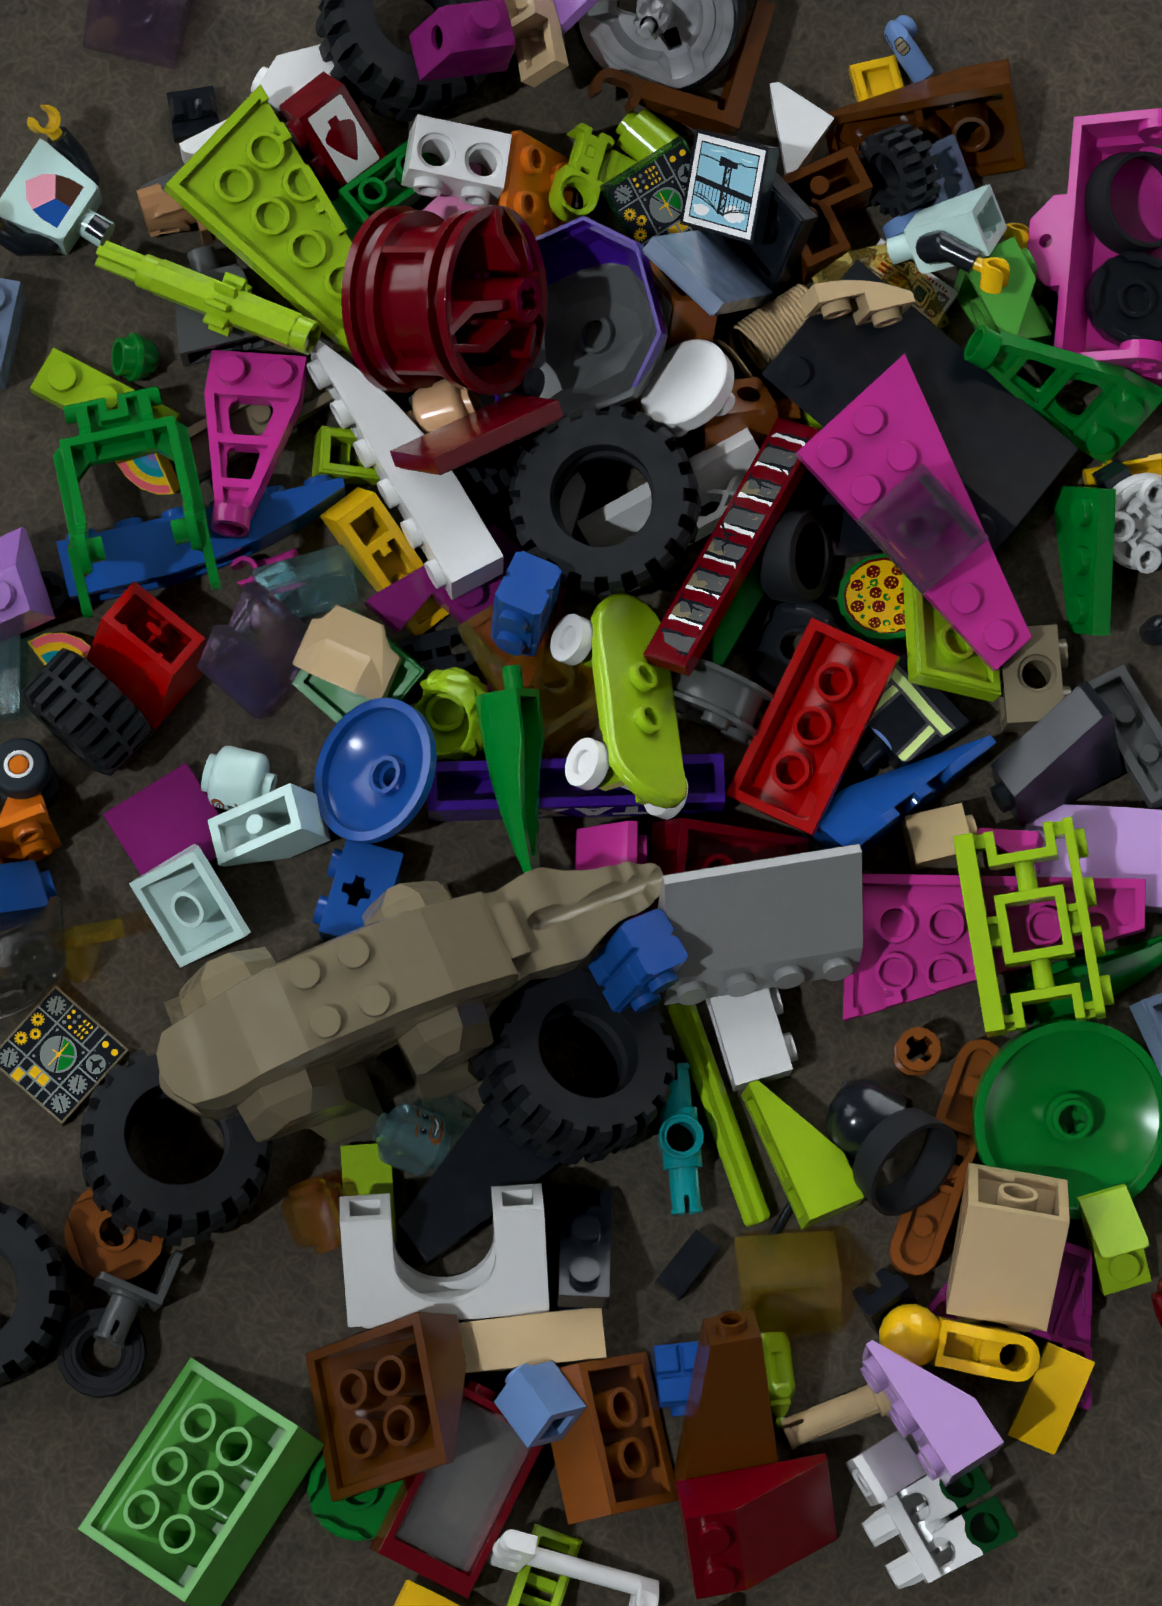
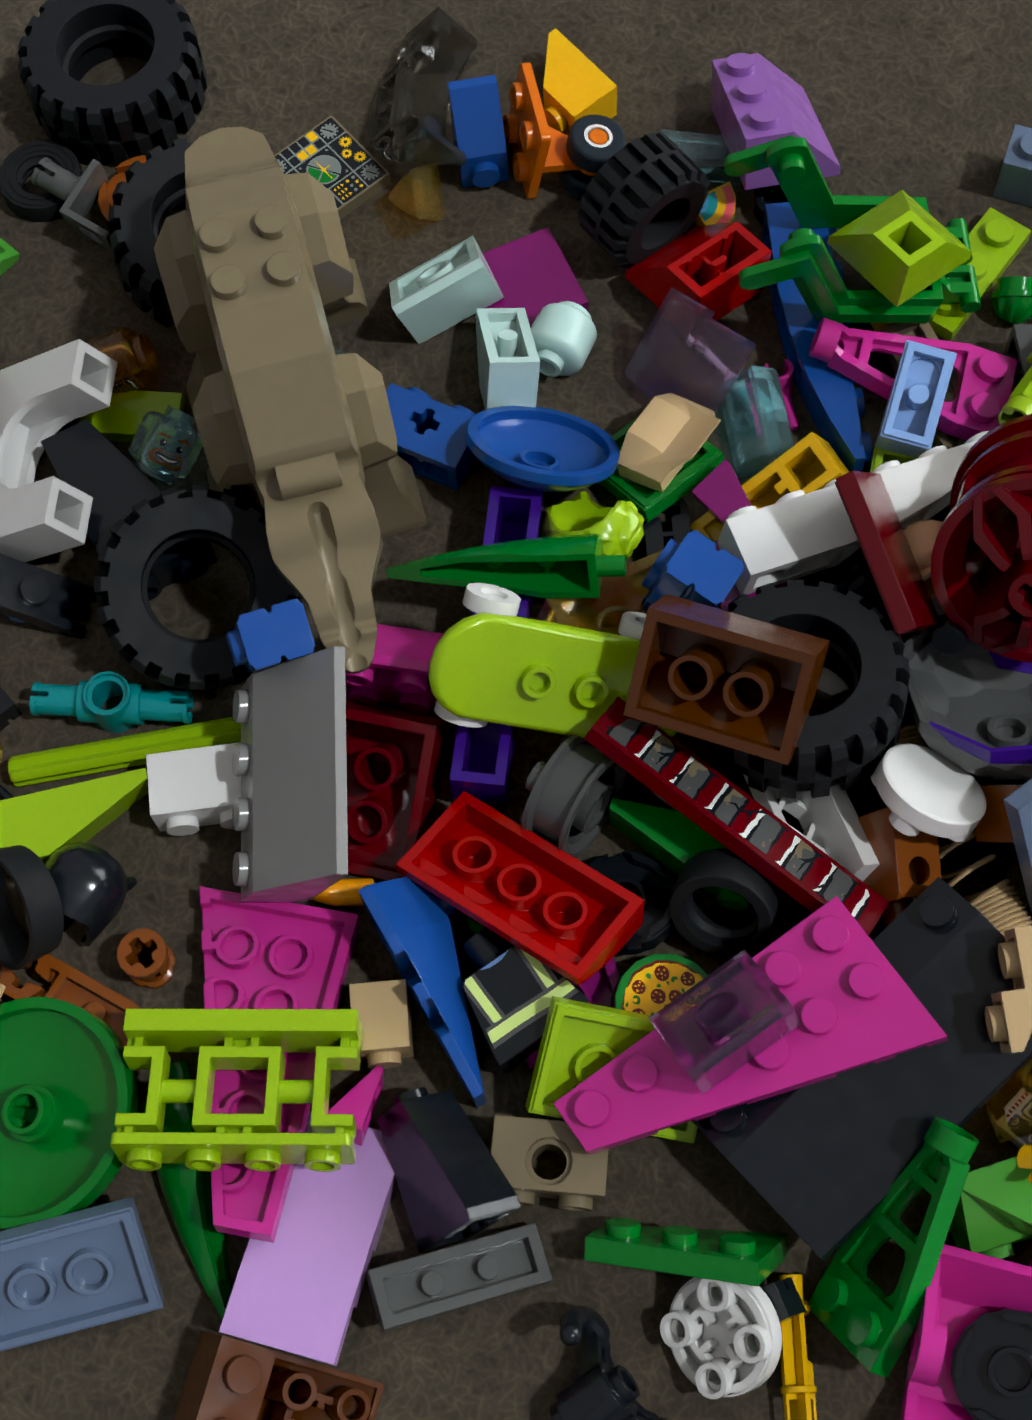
camera: 110 degrees right, 10 degrees down
(133, 455) = (899, 248): none -> lime slope
(286, 432) = (916, 399): none -> light blue slope
(633, 551) = (725, 677): none -> reddish brown slope

